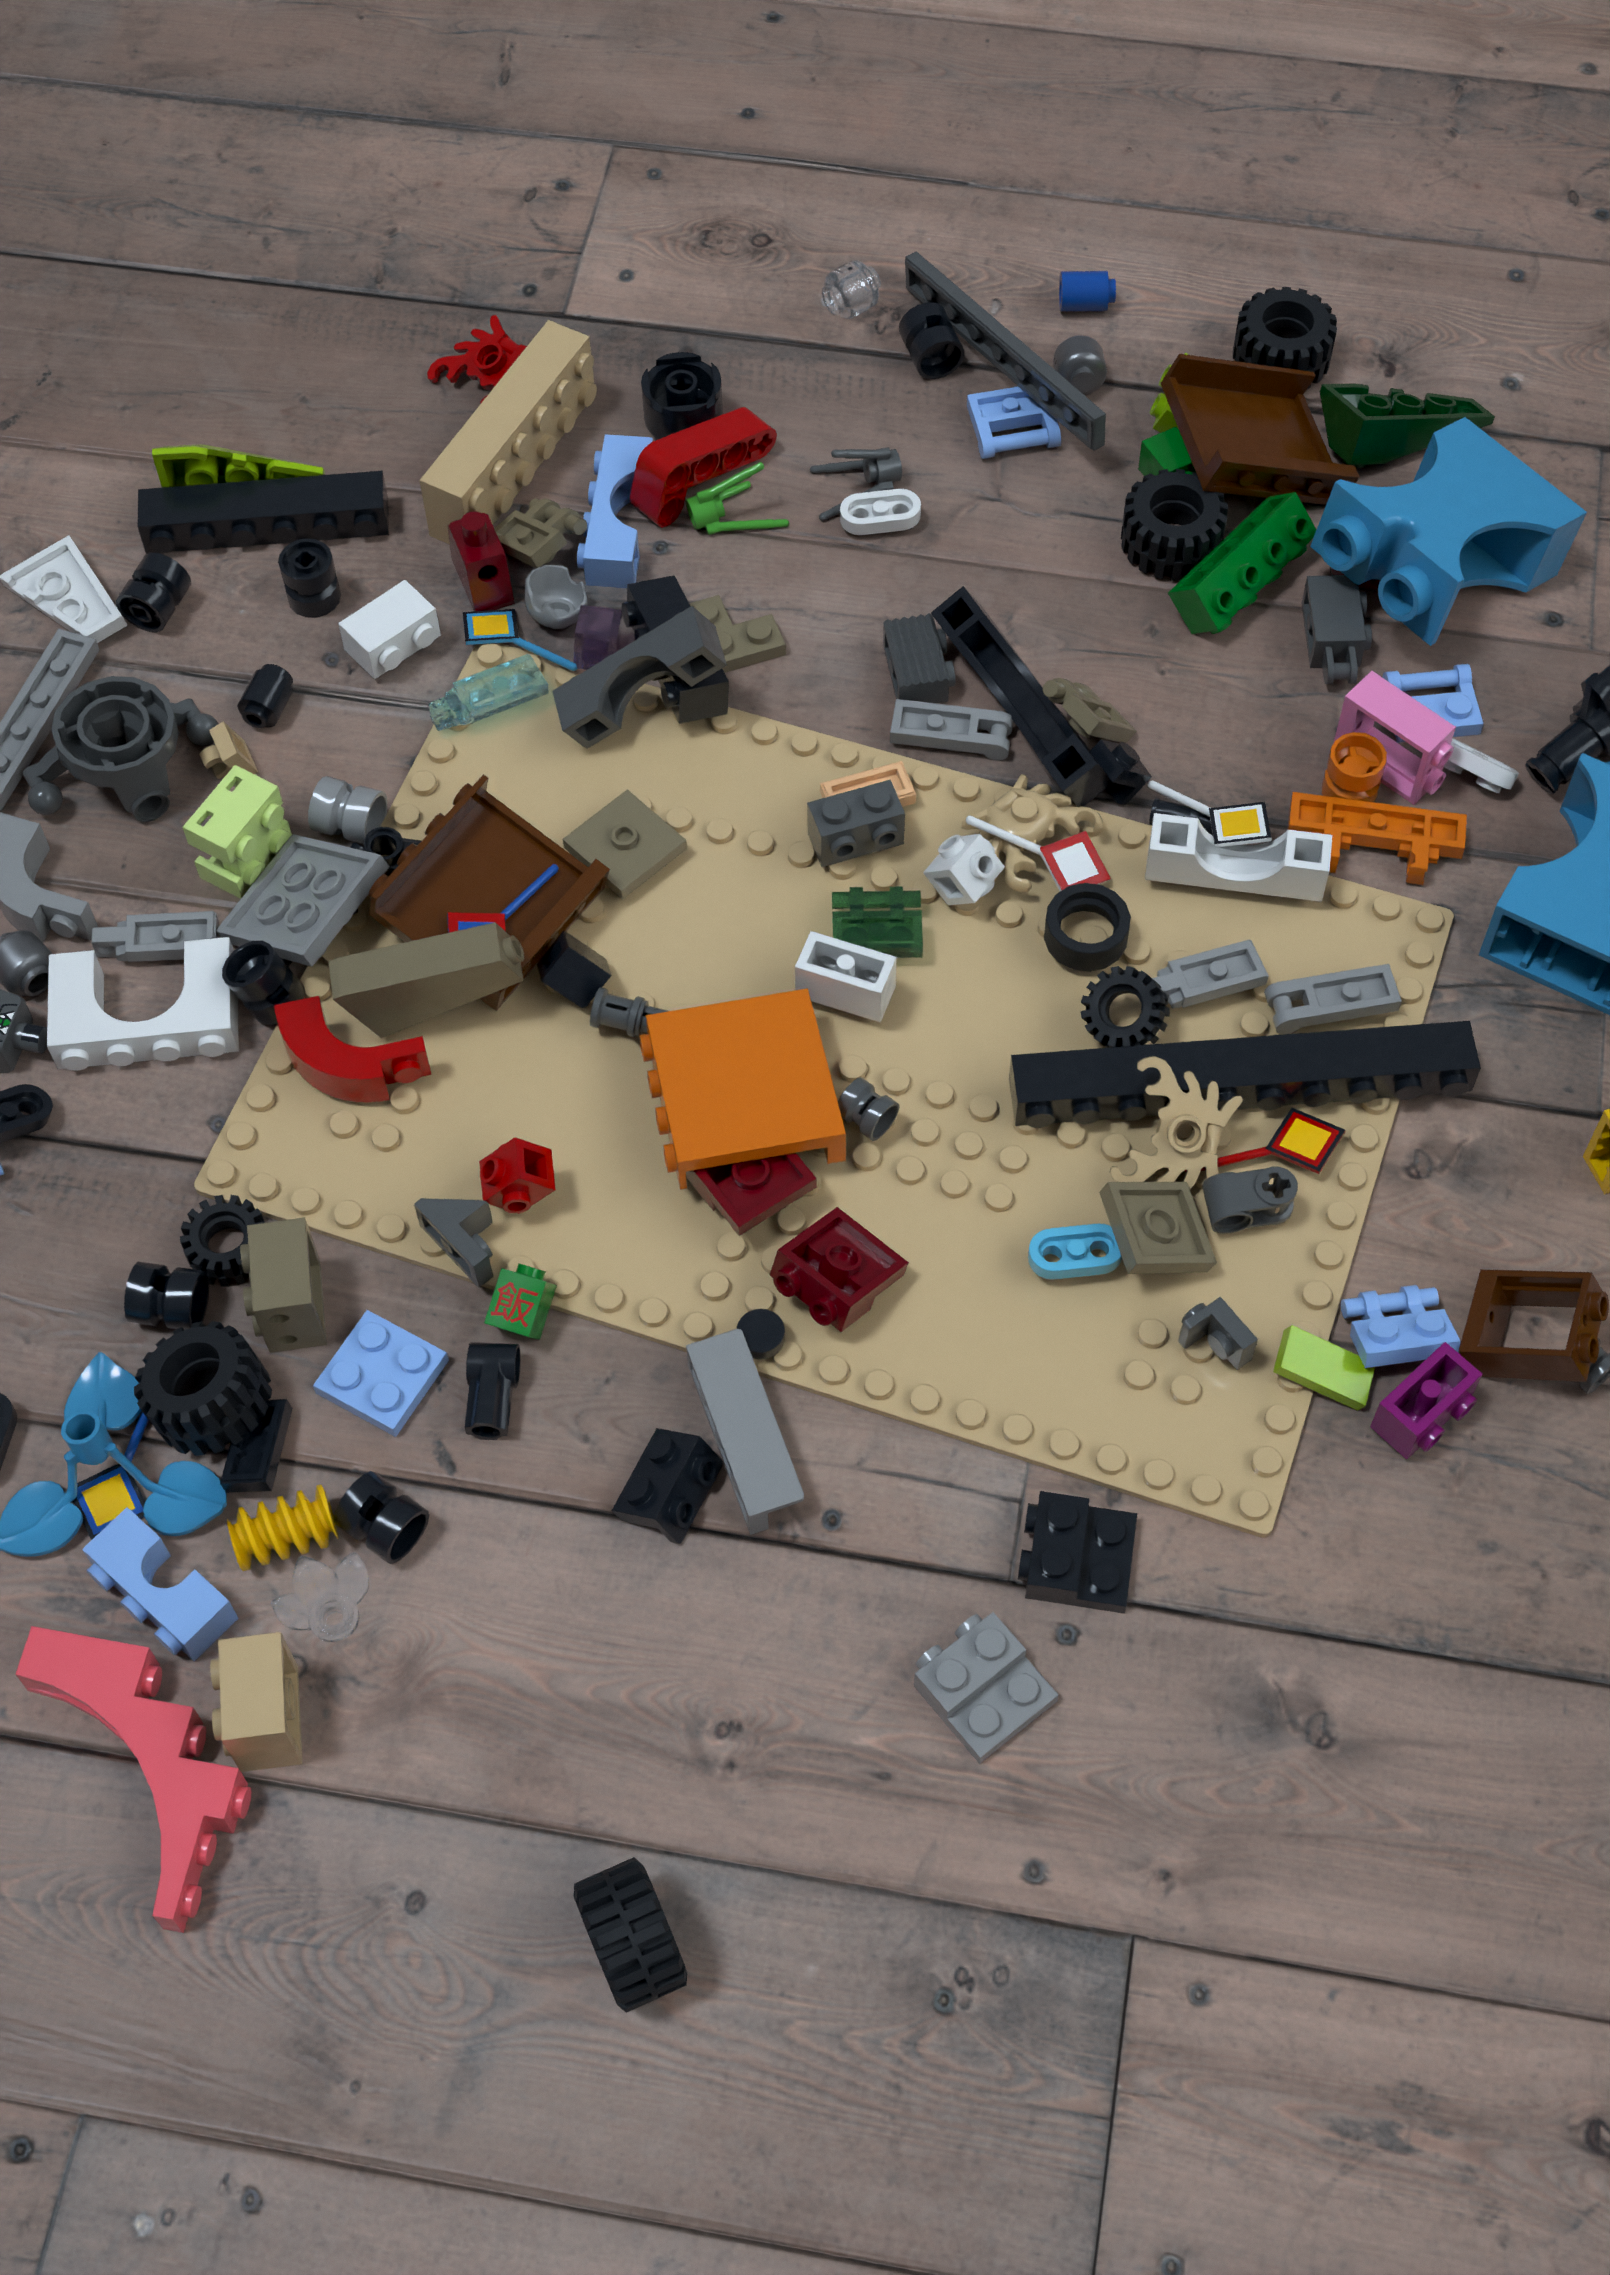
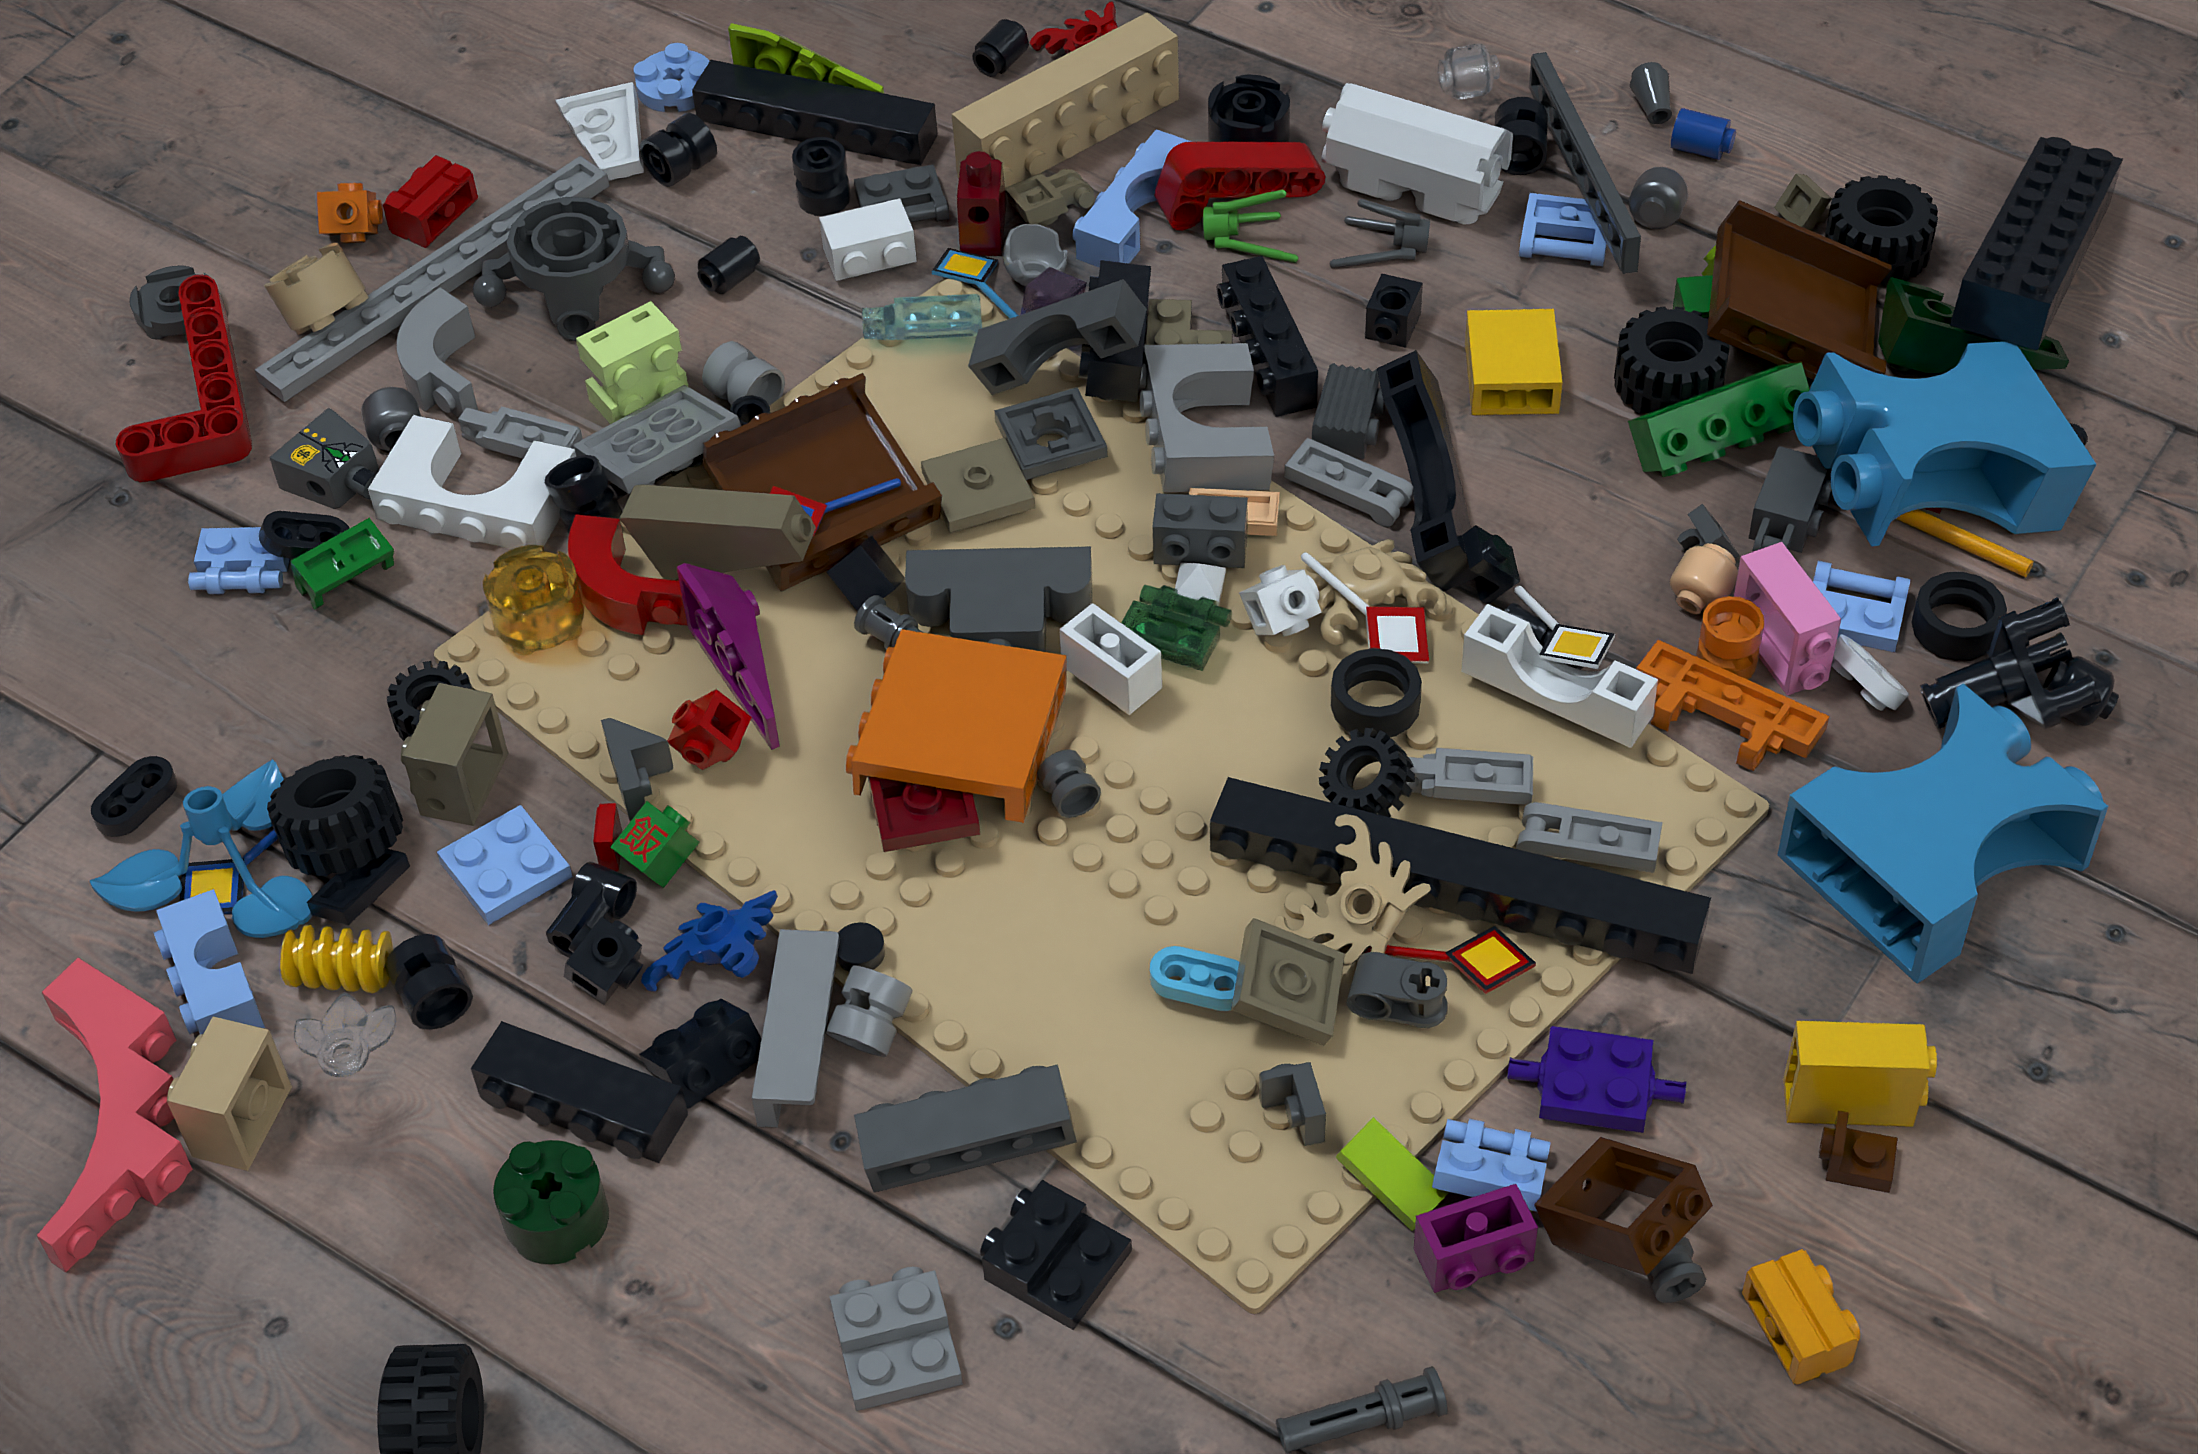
camera: 25 degrees right, 10 degrees down
(58, 1128) = (341, 560): none -> green hinge
(98, 500) = (658, 74): none -> light blue plate
(158, 1295) = (351, 728): black wheel -> none
(227, 752) = (670, 299): tan tile -> none
(277, 1103) = (534, 599): none -> clear yellow brick
(390, 565) = (915, 187): none -> dark grey plate
(406, 392) = (1000, 47): none -> black brick
(469, 1311) = (605, 833): none -> red tile
(478, 1071) = (726, 629): none -> magenta wedge
(535, 1433) = (604, 958): none -> black brick
(579, 1569) = (579, 1092): none -> black brick
(610, 1655) = (551, 1200): none -> dark green brick
(626, 1372) = (715, 939): none -> blue animal
(661, 749) = (1059, 414): none -> dark grey piece
(706, 948) = (999, 591): none -> dark grey brick
(799, 749) = (1193, 453): none -> light grey arch
(806, 1410) = (869, 1011): none -> light grey wheel
(810, 609) = (1274, 342): none -> black brick
(836, 384) = (1401, 146): none -> white brick
(836, 1269) = (958, 912): dark red plate -> none
(874, 871) = (1200, 580): none -> white slope
(880, 511) = (1368, 264): white plate -> none
(906, 548) = (1393, 310): none -> black brick
(947, 1467) = (964, 1127): none -> dark grey brick
(1019, 260) = (1652, 90): none -> dark grey cone
(1035, 565) = (1513, 362): none -> yellow brick
(1088, 711) = (1487, 502): dark tan plate -> none
(1204, 332) = (1804, 202): none -> dark tan tile
(1286, 679) = (1706, 531): none -> dark grey tile
(1301, 721) = (1703, 576): none -> light nougat head
(1428, 1579) = (1388, 1405): none -> dark grey pin
(1433, 316) = (2036, 243): none -> black brick
(1440, 1215) = (1596, 1079): none -> dark purple plate
(1502, 613) = (1968, 541): none -> light orange bar
(1527, 660) = (1964, 590): none -> black tyre

